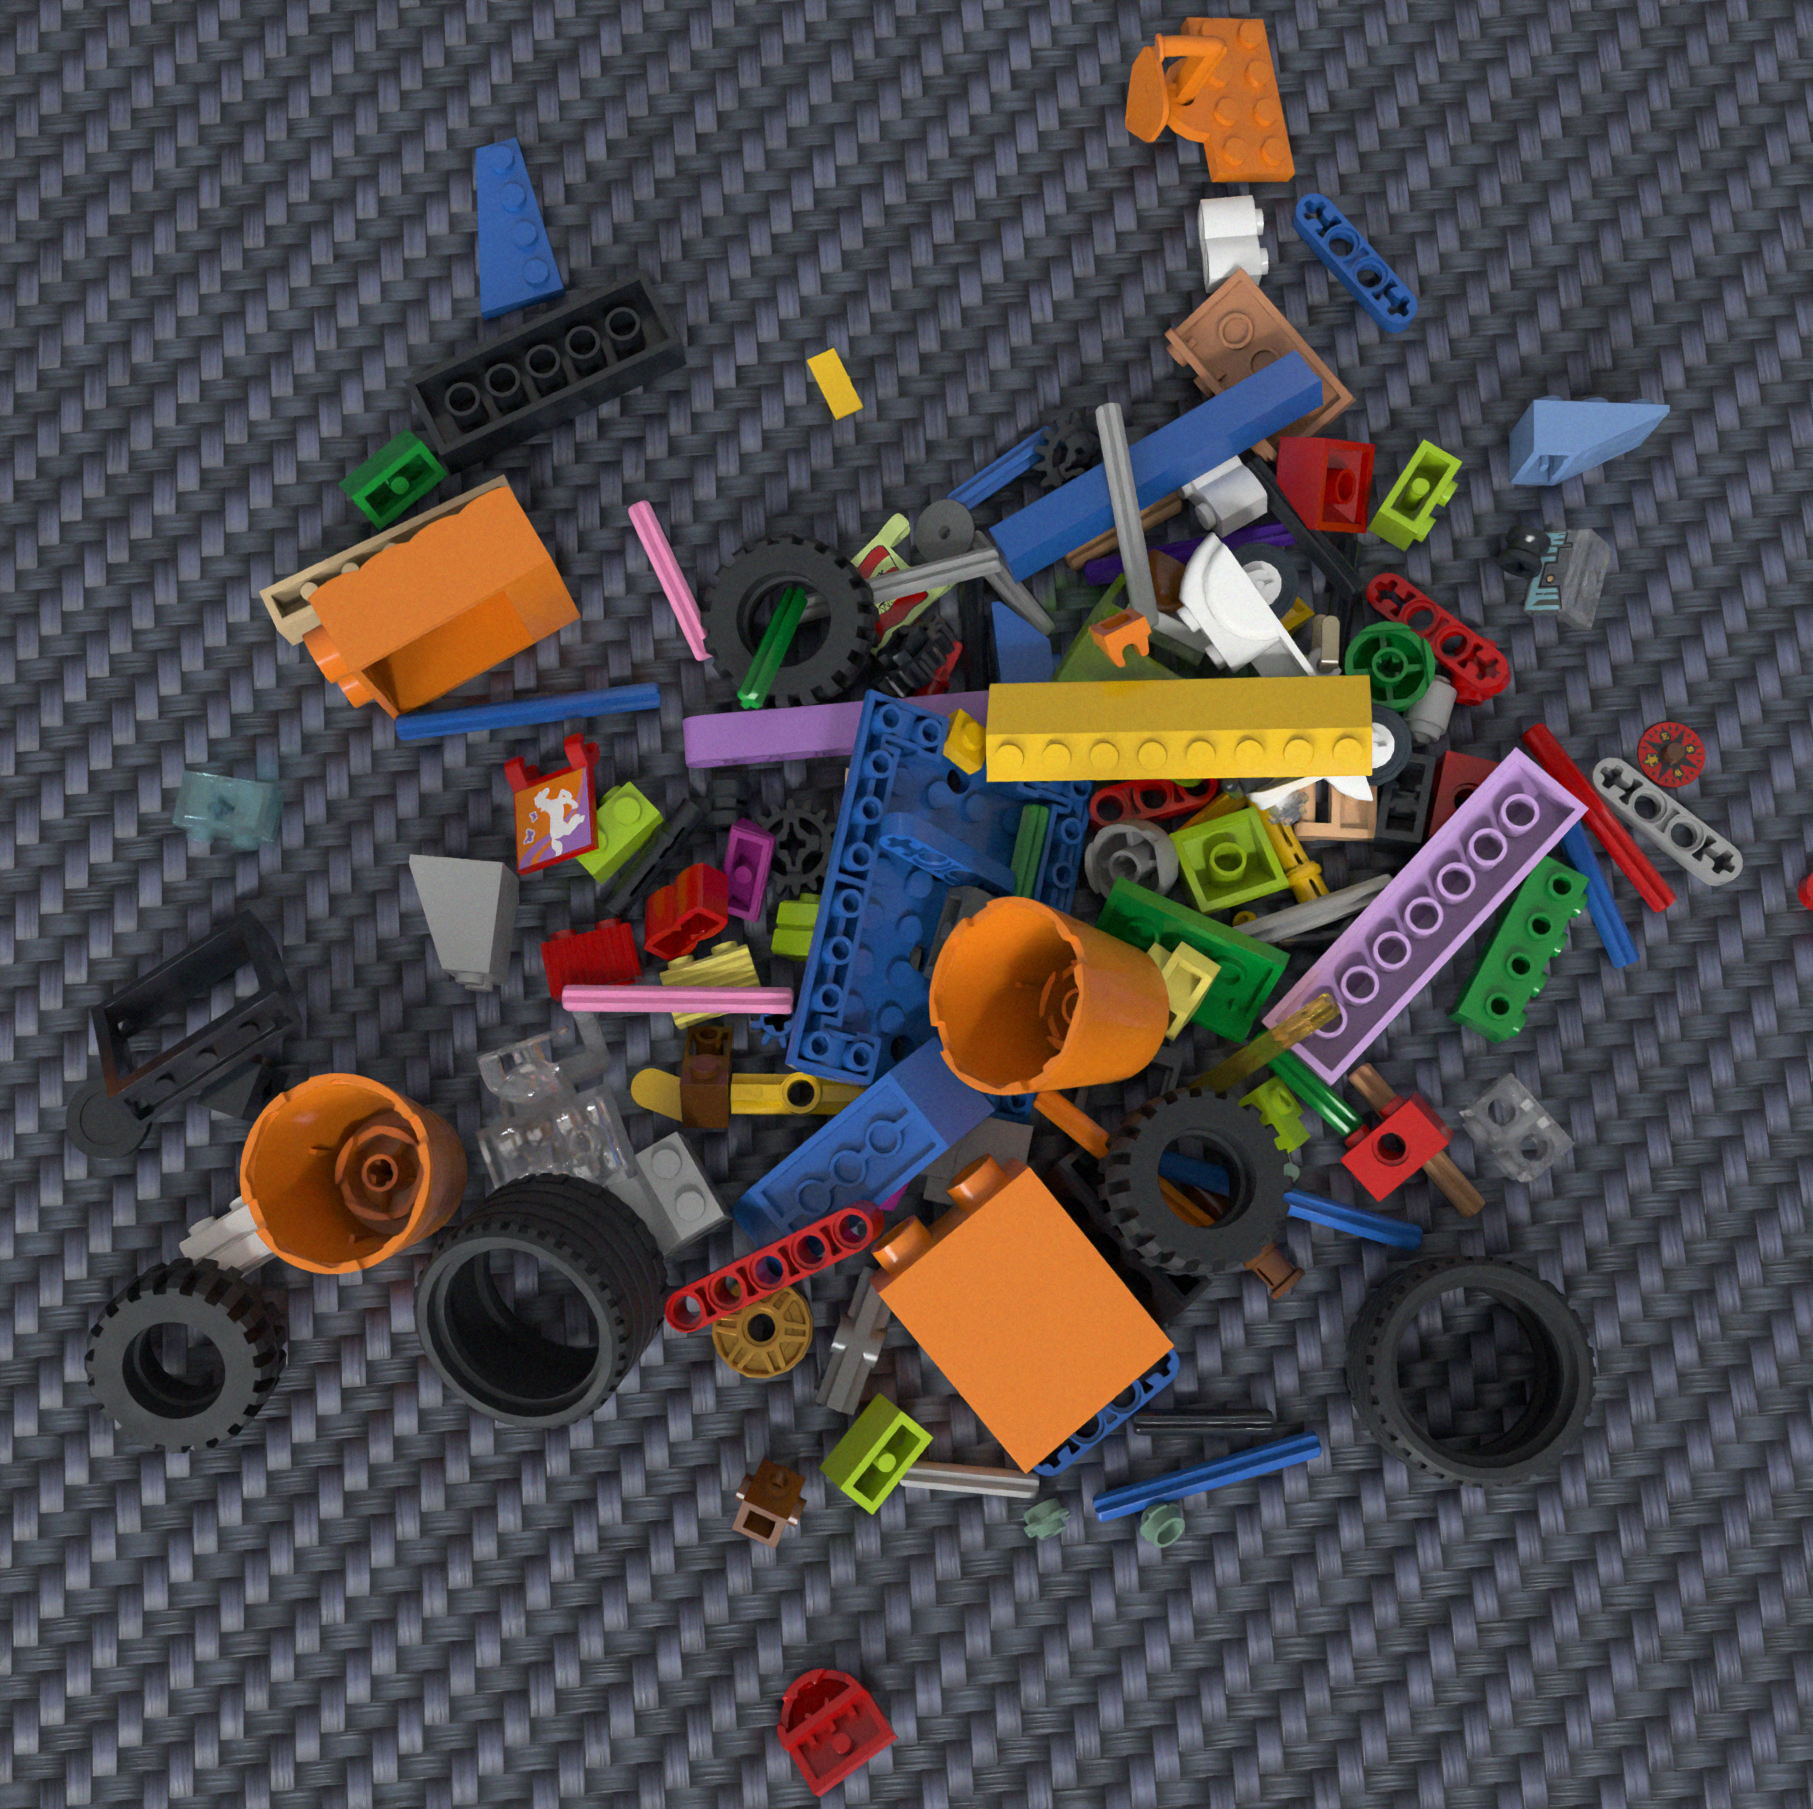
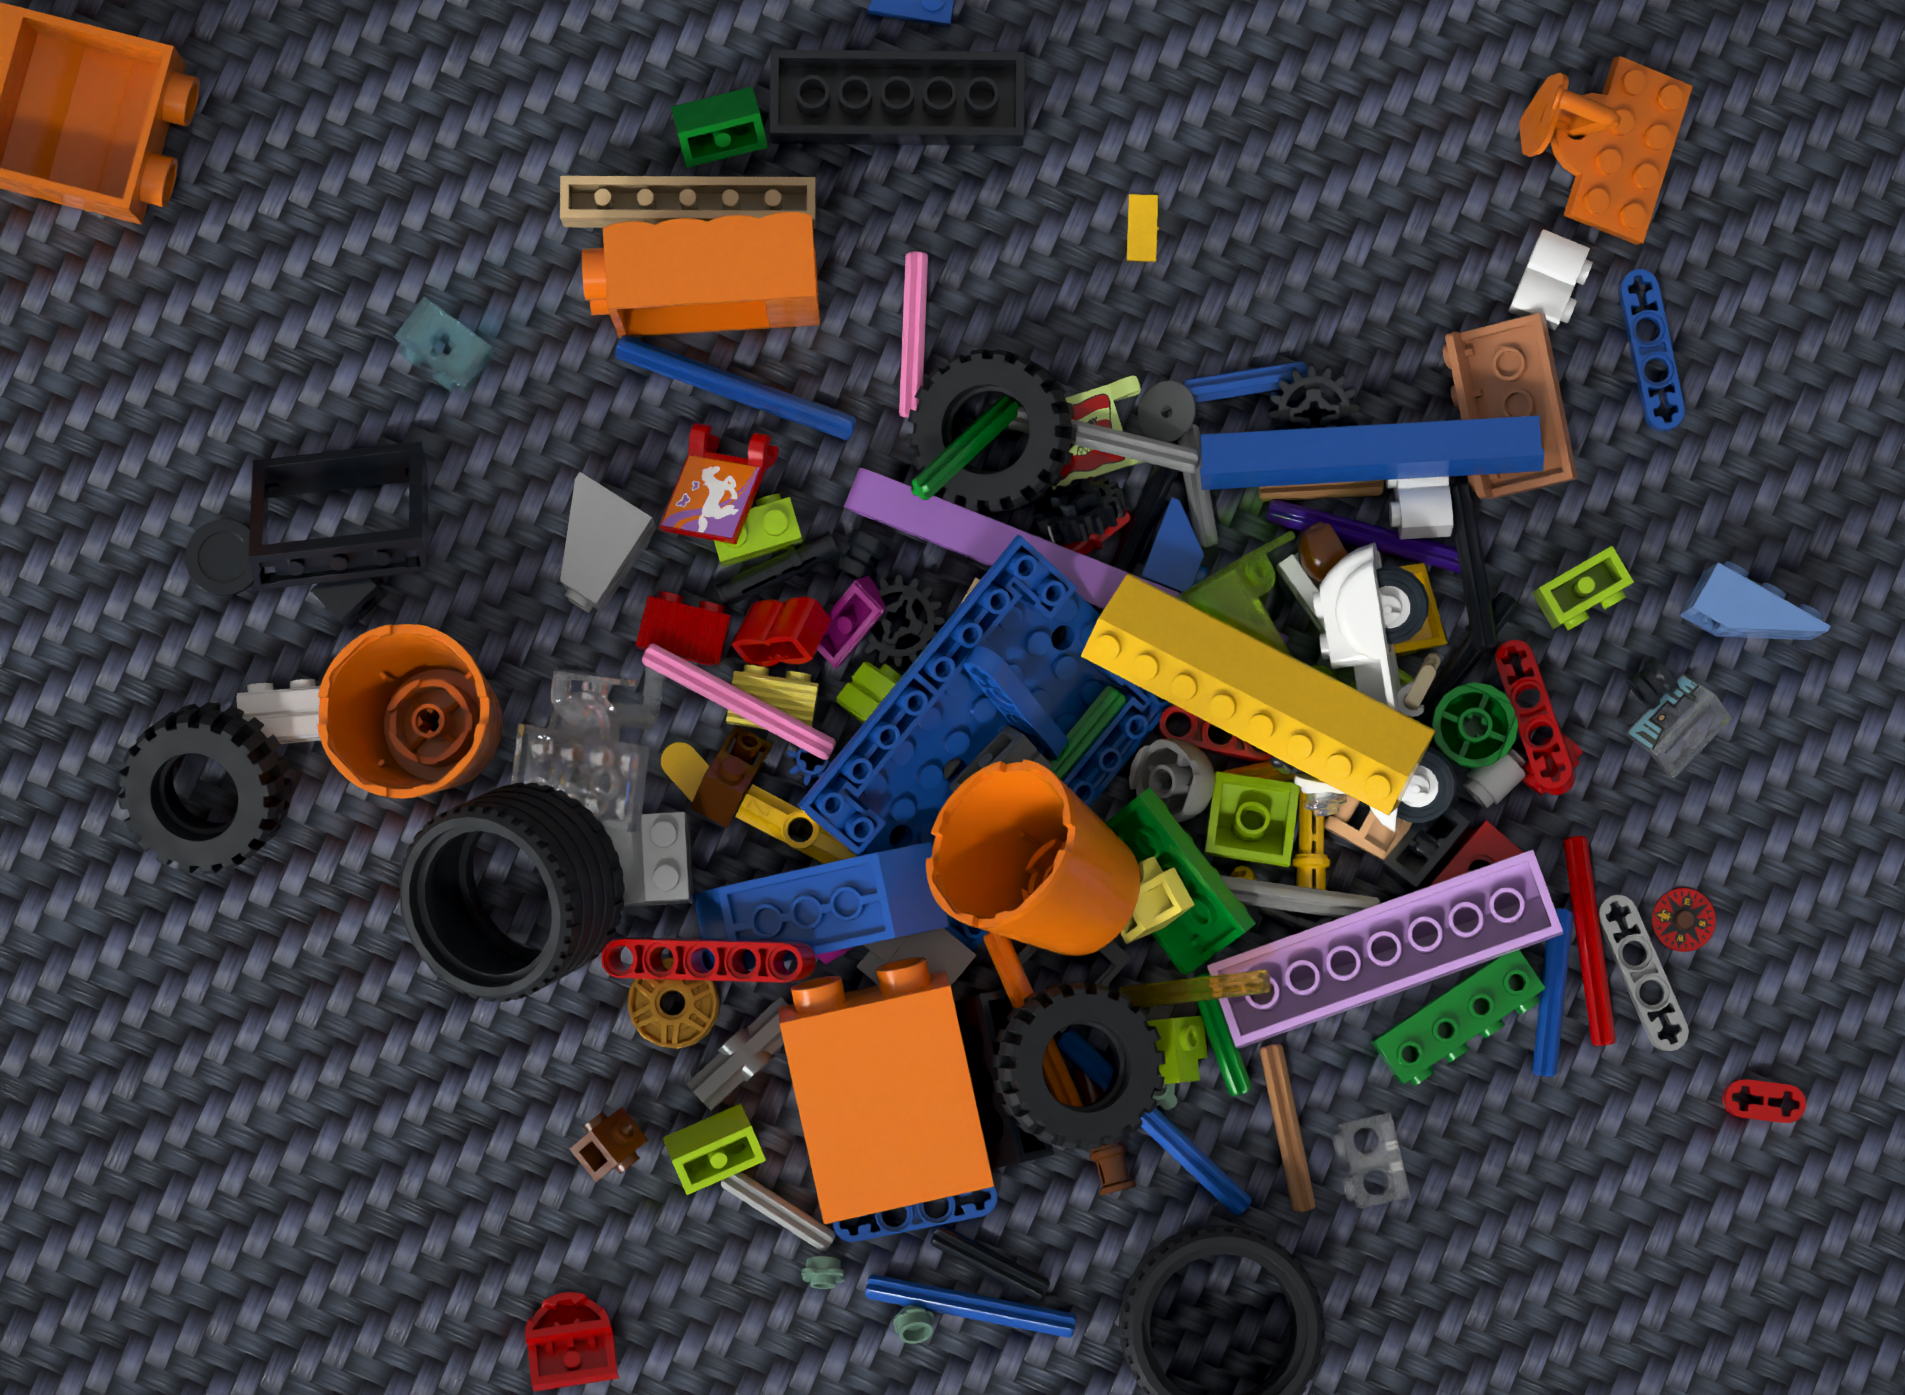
camera: 20 degrees right, 5 degrees up
(965, 742) = (1082, 610): yellow plate -> none
(1120, 630) = (1254, 588): orange tile -> none
(1126, 511) = (1318, 487): light grey axle -> none
(1327, 481) = (1513, 538): red slope -> none
(1385, 1170) = (1288, 1115): red brick -> none

